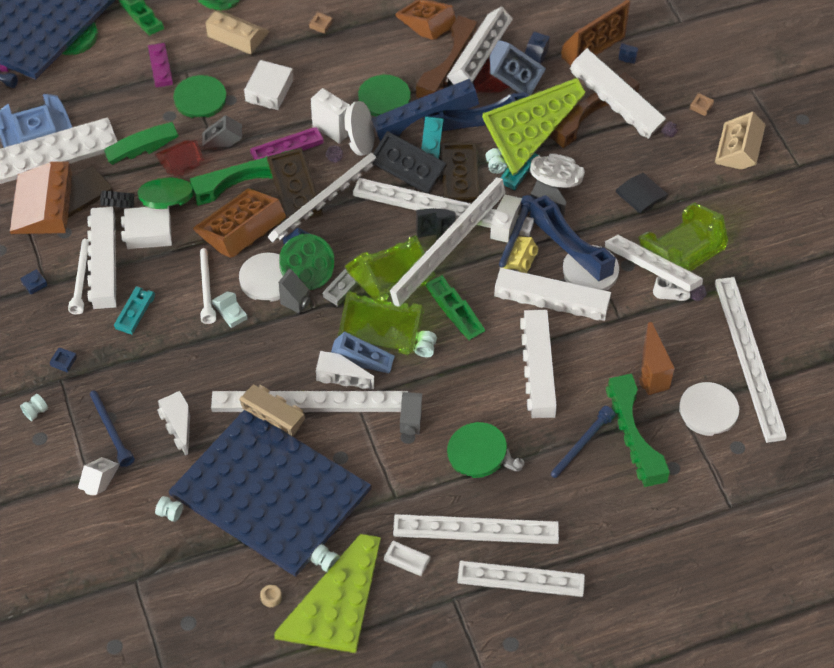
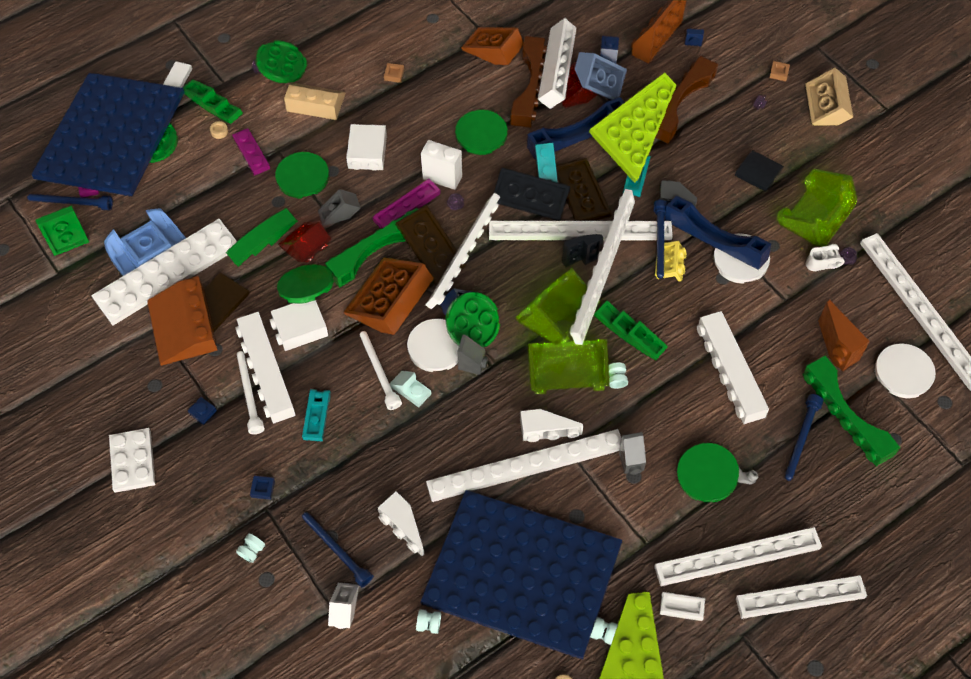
camera: 15 degrees left, 5 degrees up
(117, 199) = (260, 302): black tyre -> none
(137, 38) = (218, 129): none -> tan tile
(272, 409) = (497, 486): tan slope -> none
(338, 289) = (512, 338): light grey hinge -> none
(360, 128) = (475, 171): white tile -> none
(362, 353) = (559, 401): medium blue slope -> none
(455, 97) = (554, 119): dark blue arch -> none
(495, 161) = (613, 172): light aqua wheel -> none
(505, 218) = (646, 228): white slope -> none
(552, 294) = (717, 293): white brick -> none
(557, 170) = (674, 168): white tile -> none
(617, 93) = (704, 79): white brick -> none
(654, 263) = (803, 238): white plate -> none

